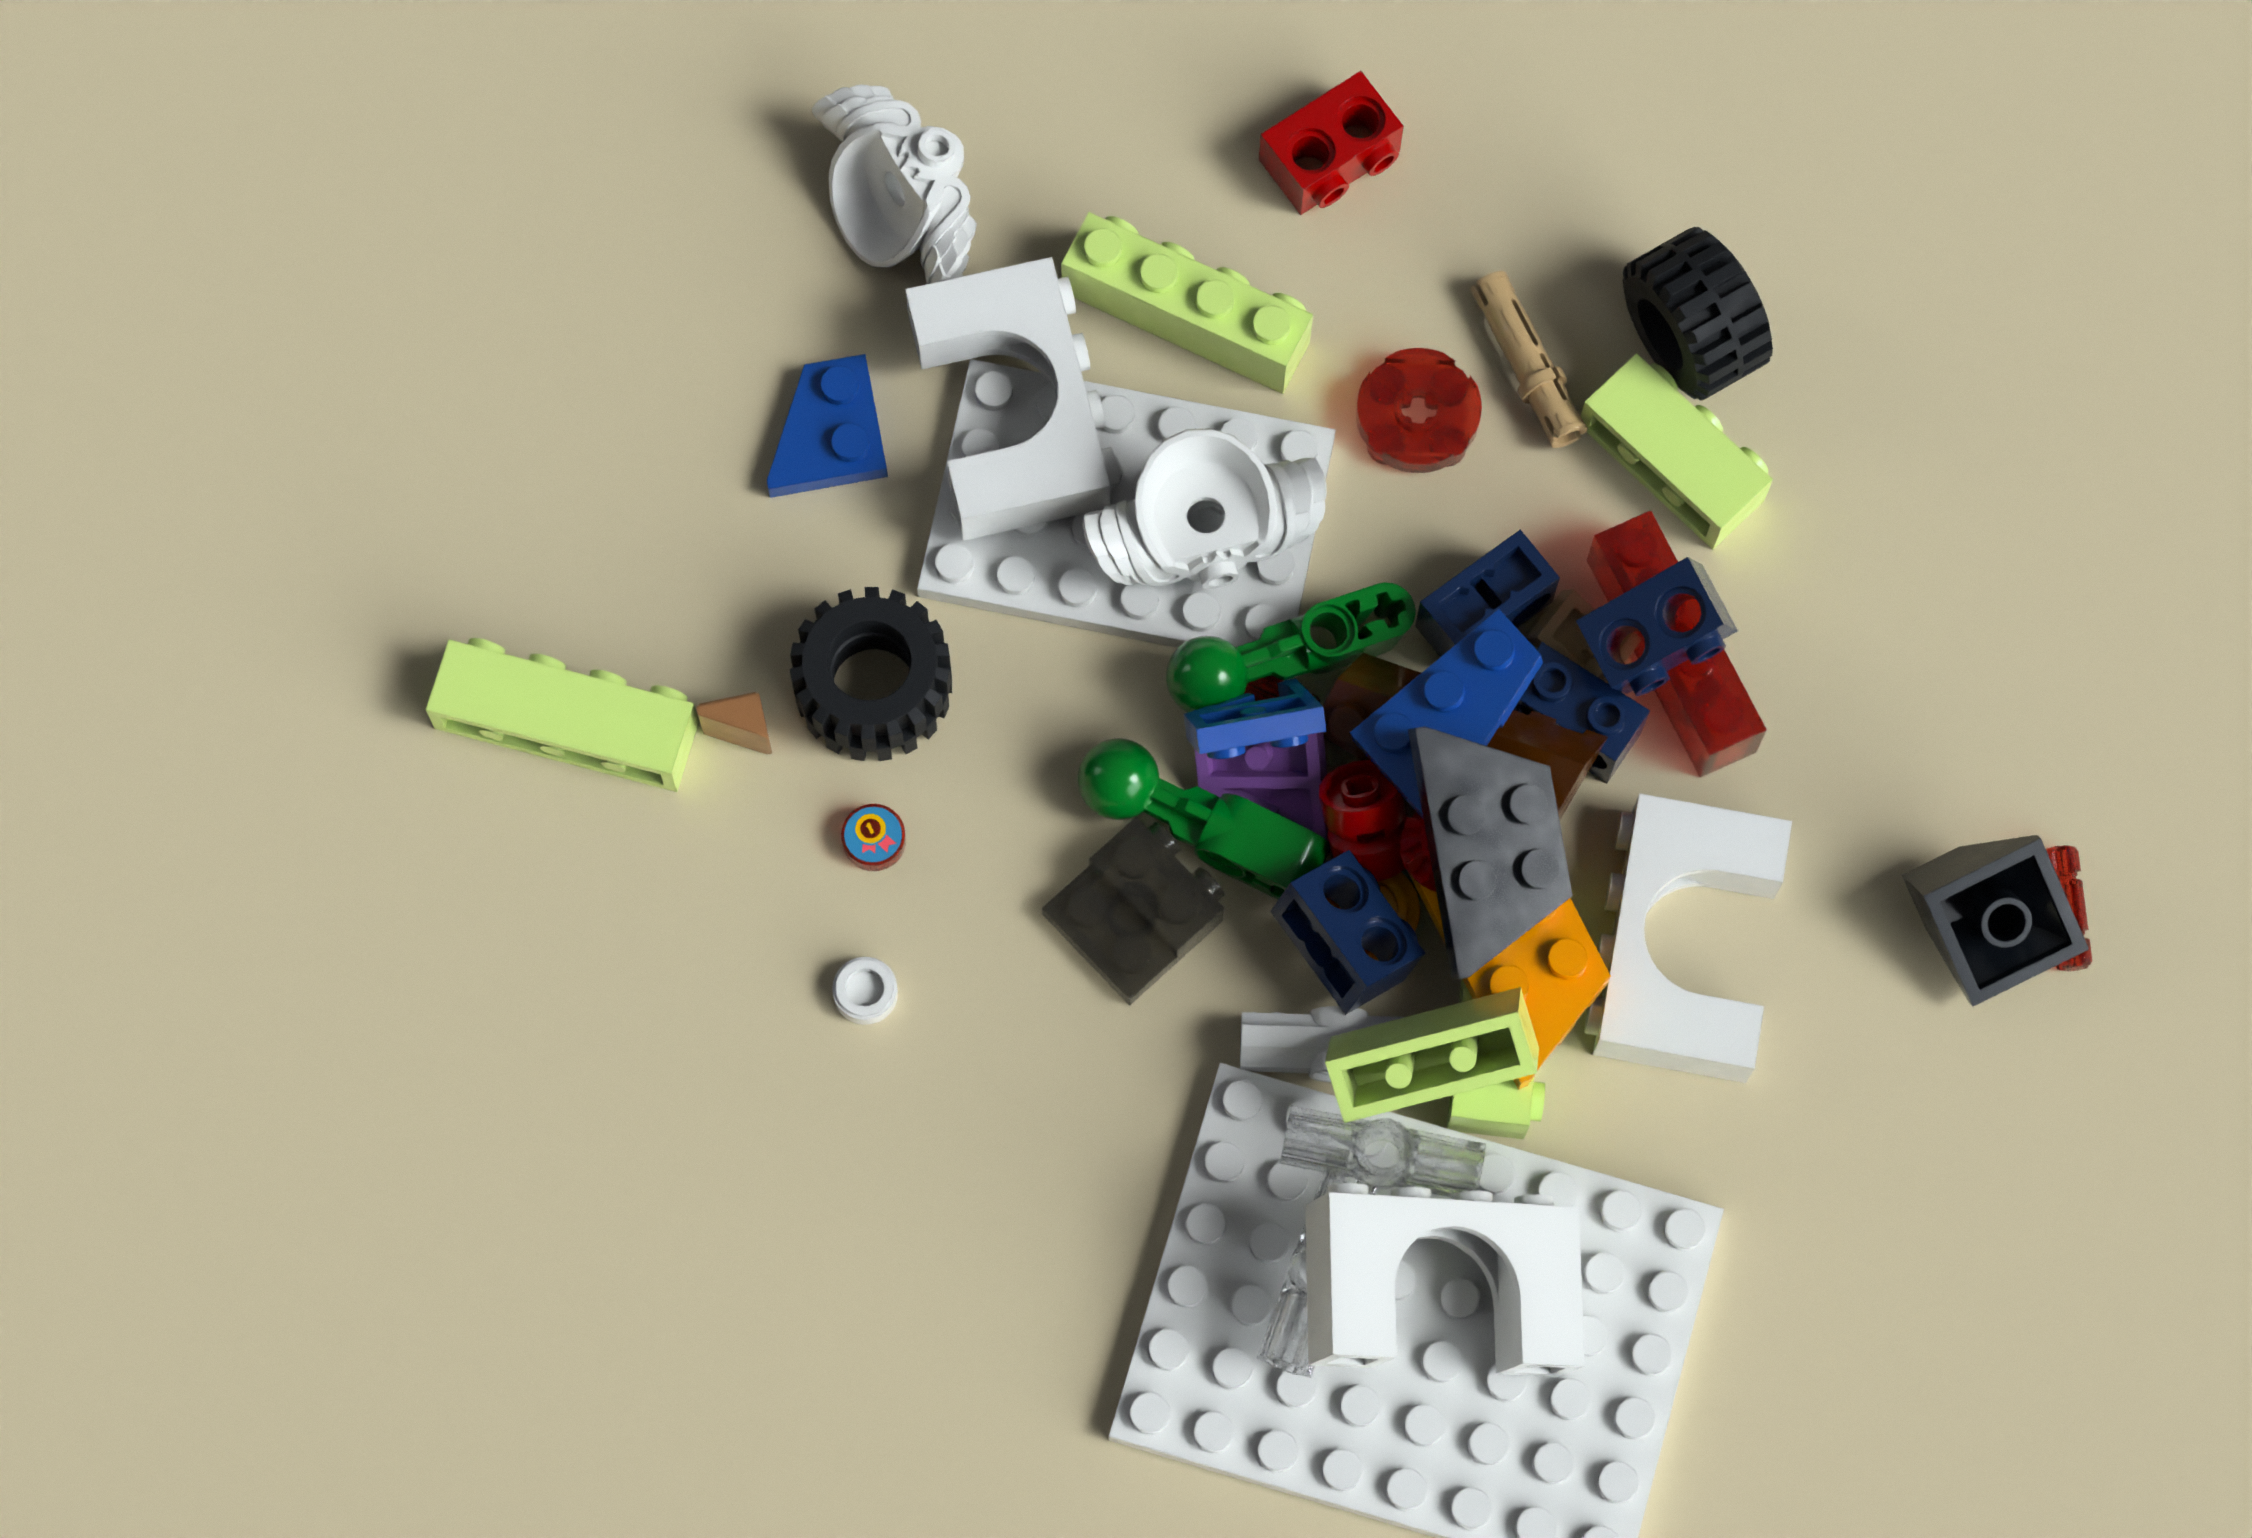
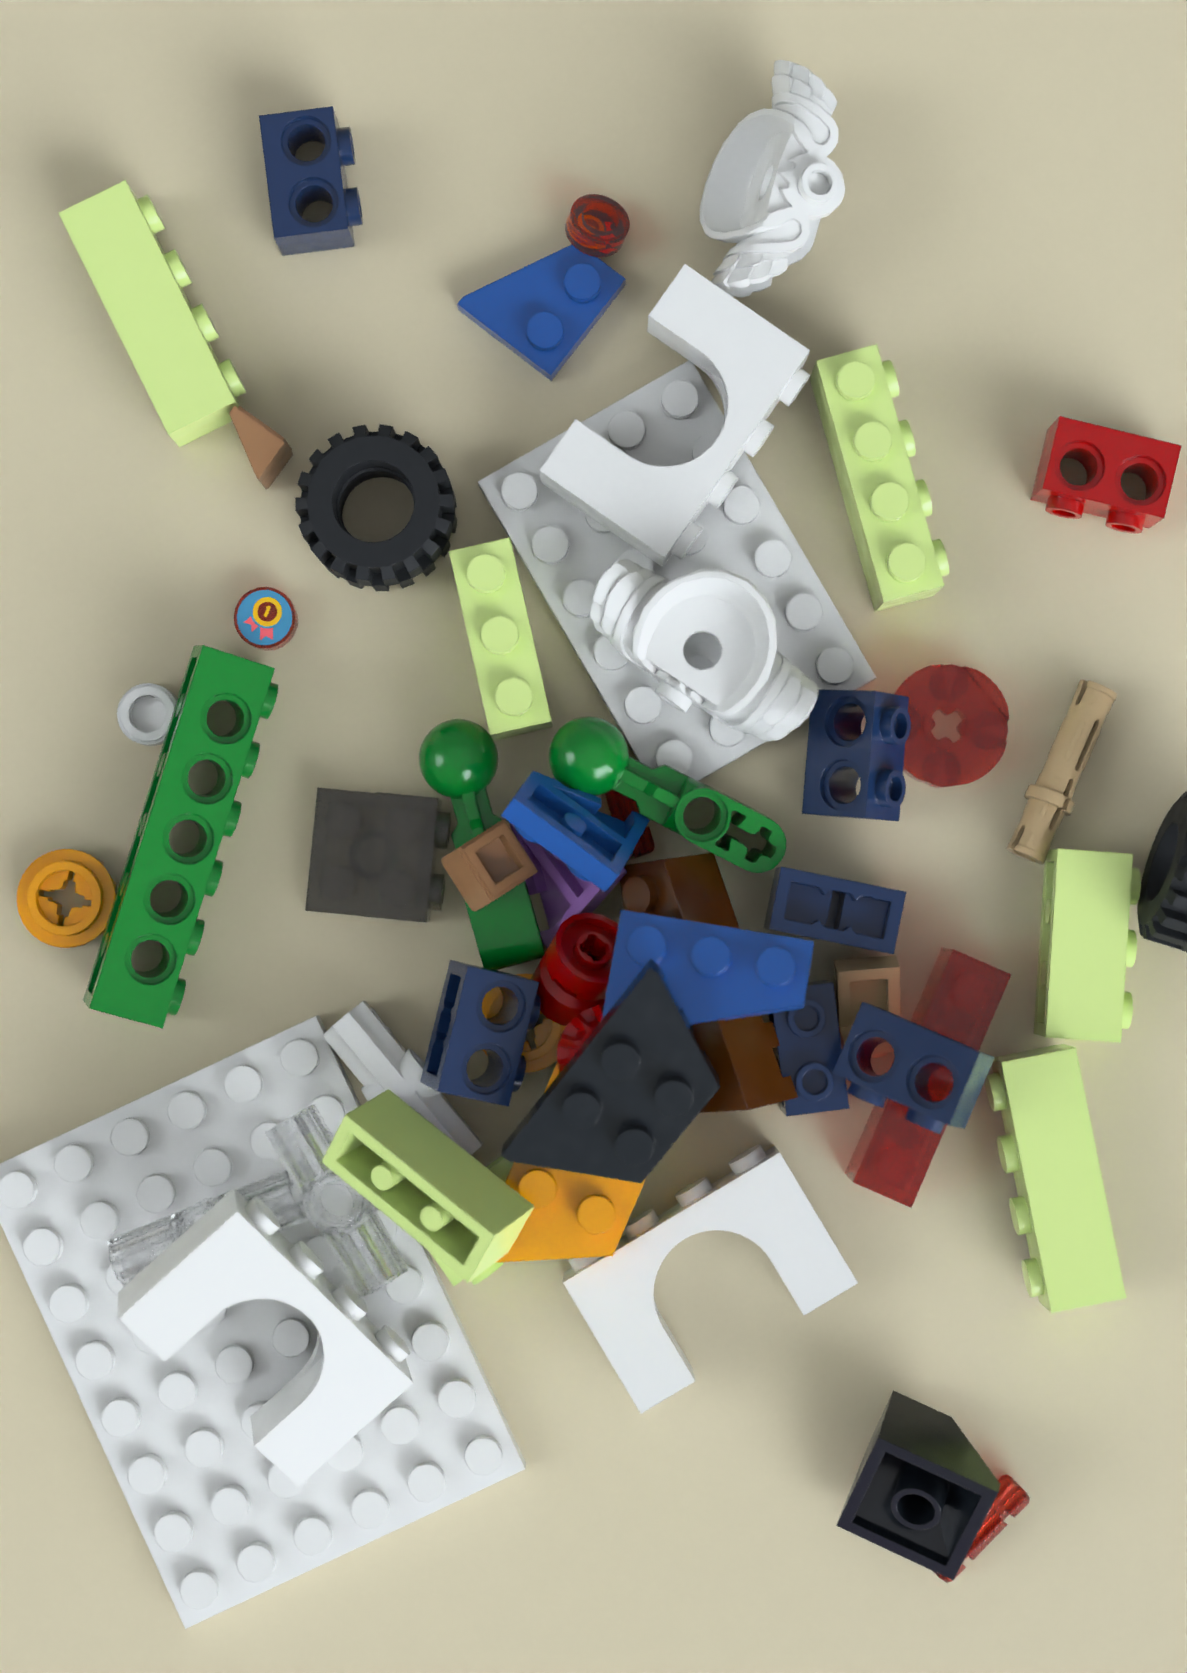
camera: 55 degrees right, 15 degrees up
(563, 525) = (298, 183): none -> dark blue brick
(806, 340) = (597, 225): none -> clear red tile
(958, 1147) = (44, 916): none -> light orange gear
(982, 1072) = (153, 994): none -> green brick
(1055, 669) = (500, 639): none -> yellowish green brick
(1224, 819) = (488, 865): none -> medium nougat slope
(1374, 499) = (843, 754): none -> dark blue brick
(1837, 615) = (1056, 1178): none -> yellowish green brick

